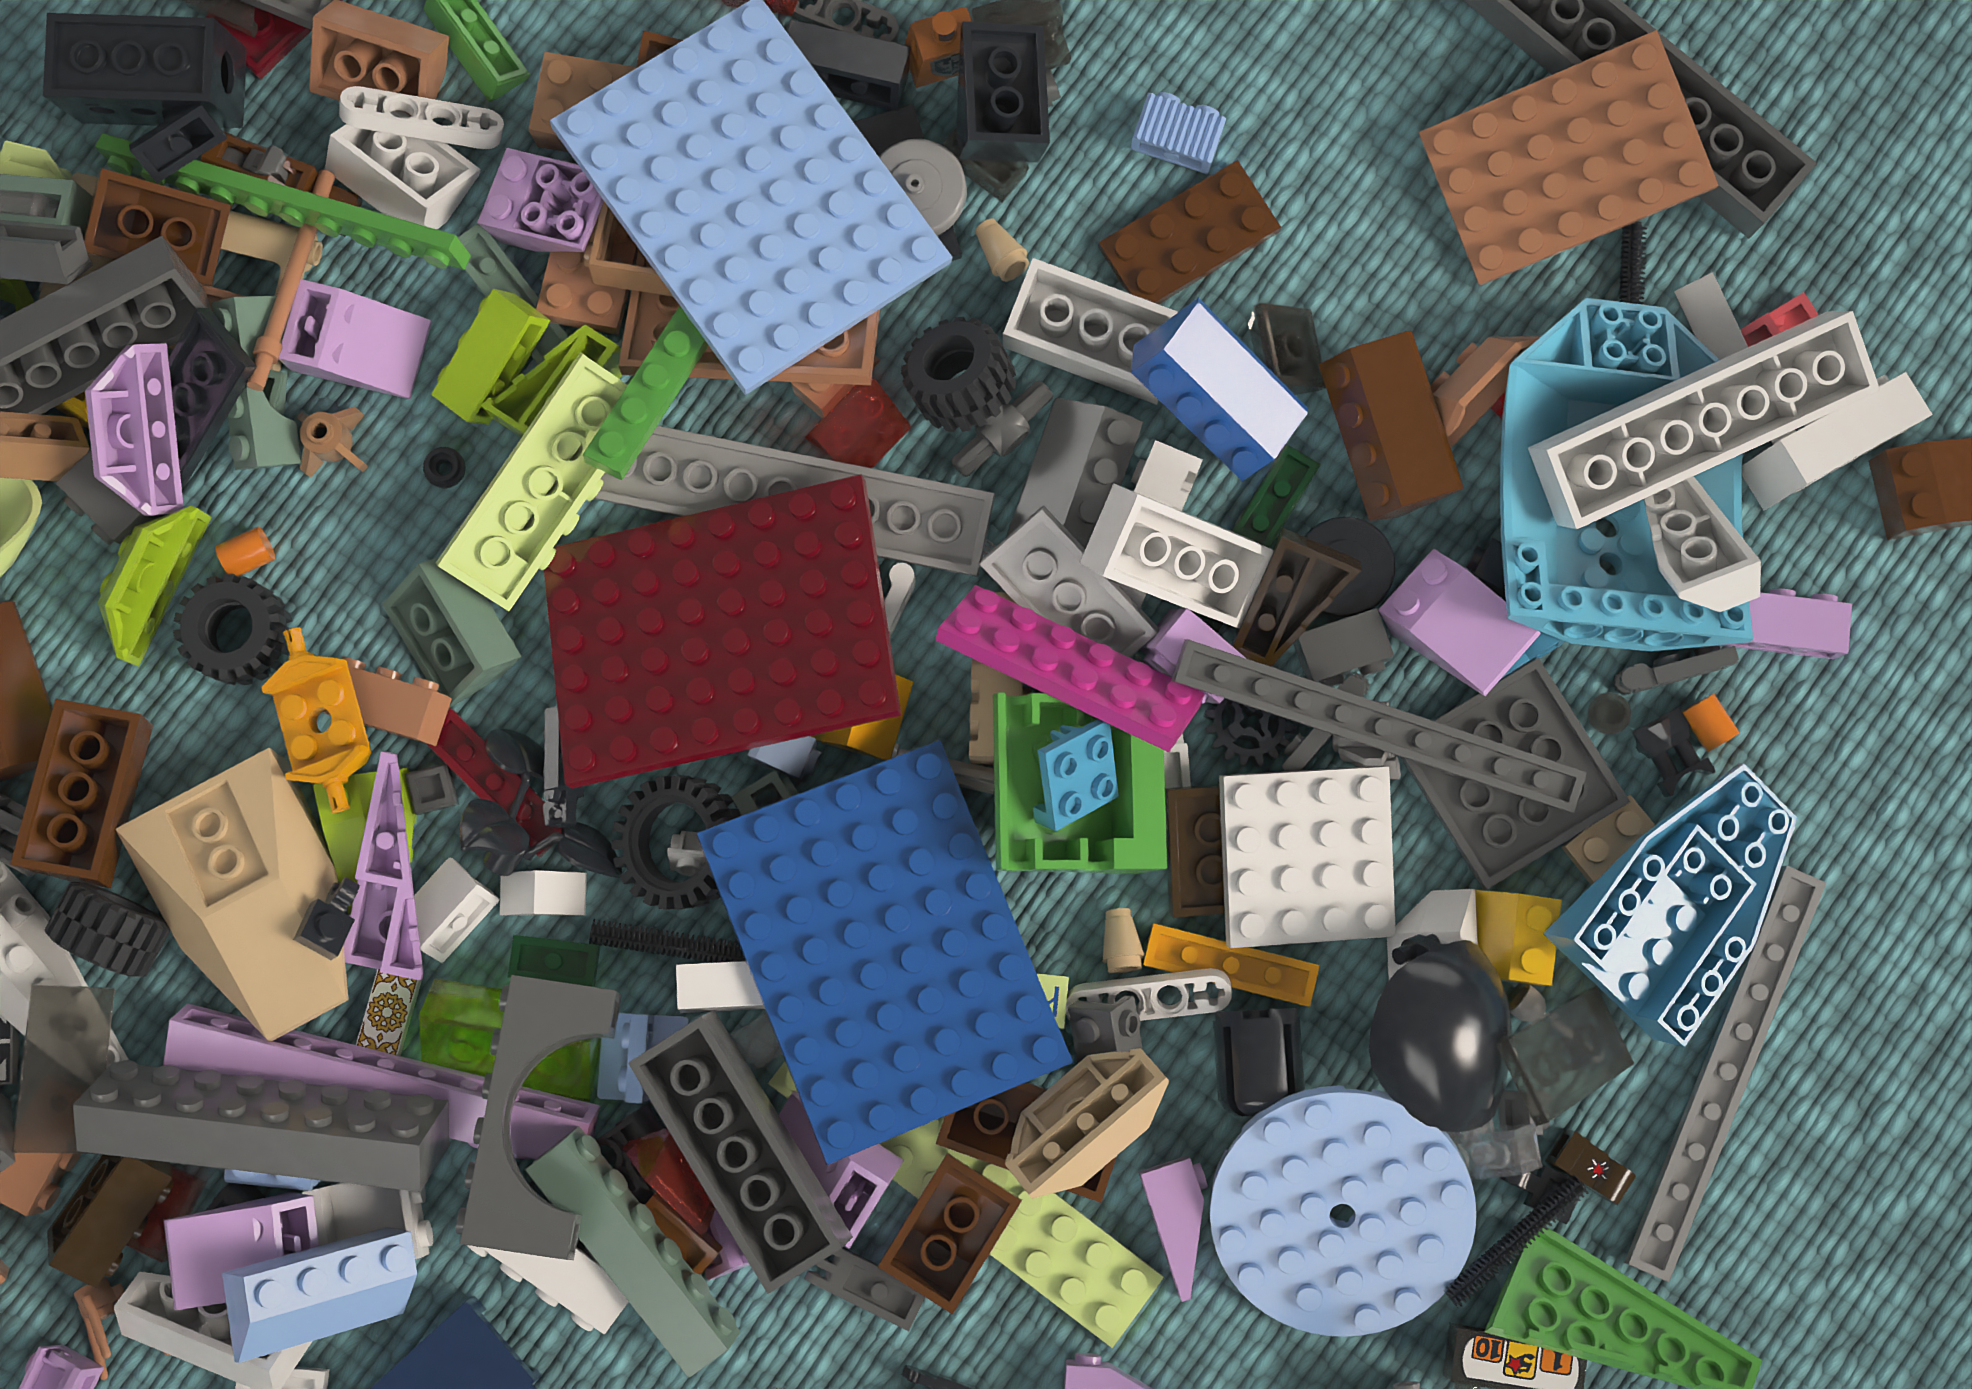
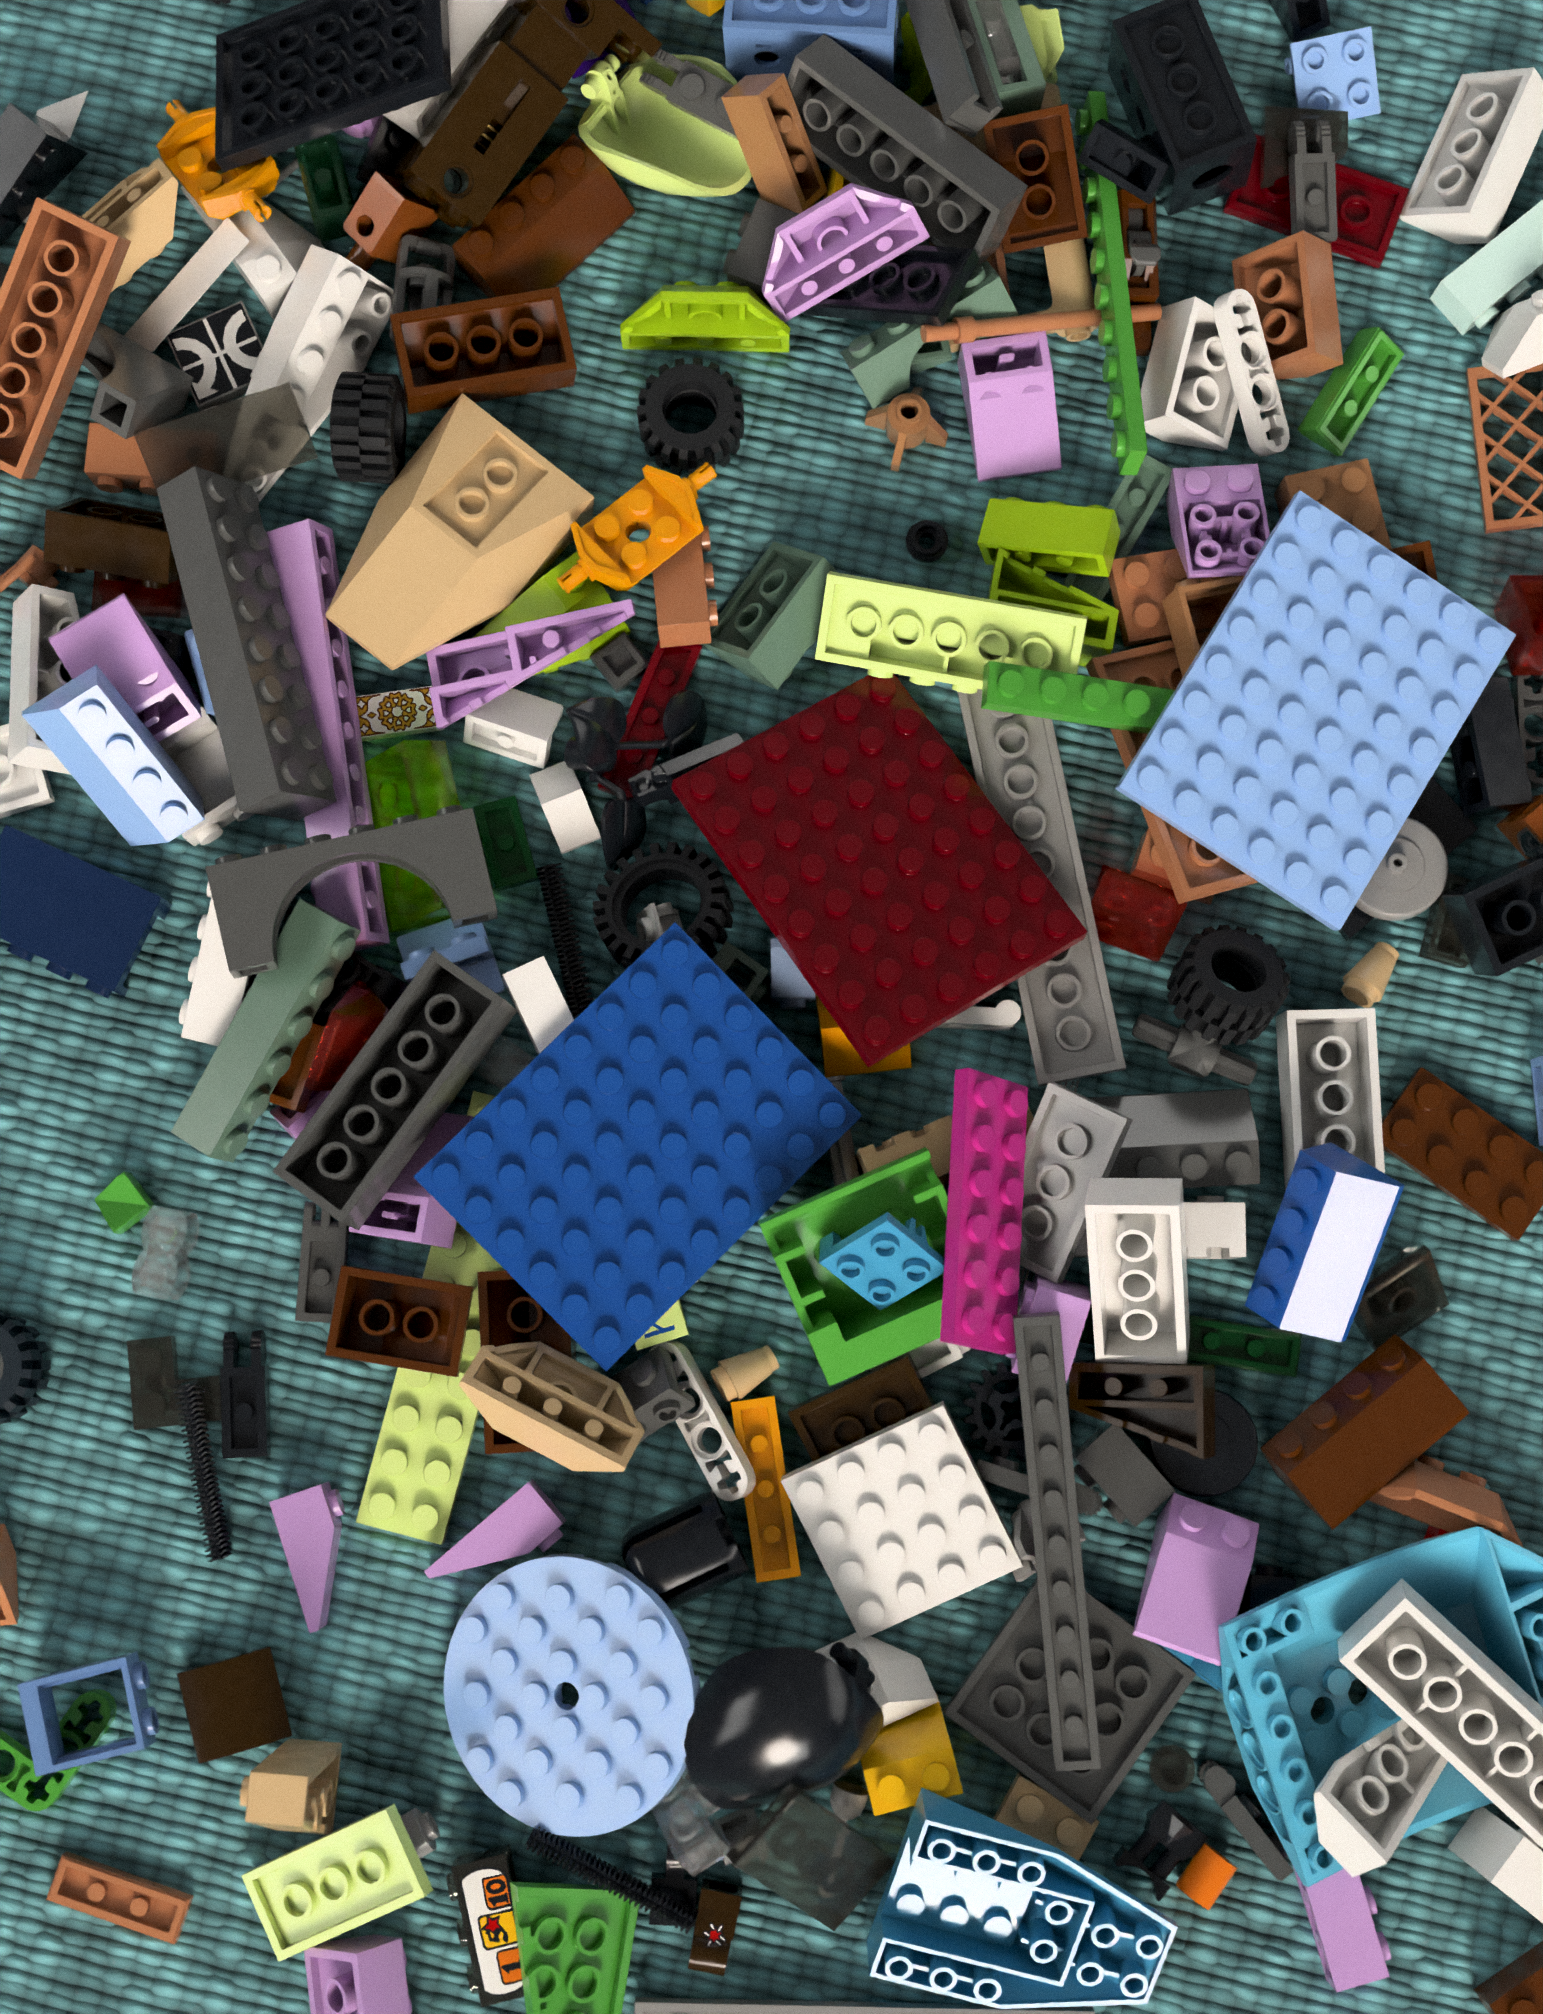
camera: 65 degrees right, 0 degrees up
(245, 552) = (768, 396): orange piece -> none
(325, 922) = (451, 618): black plate -> none

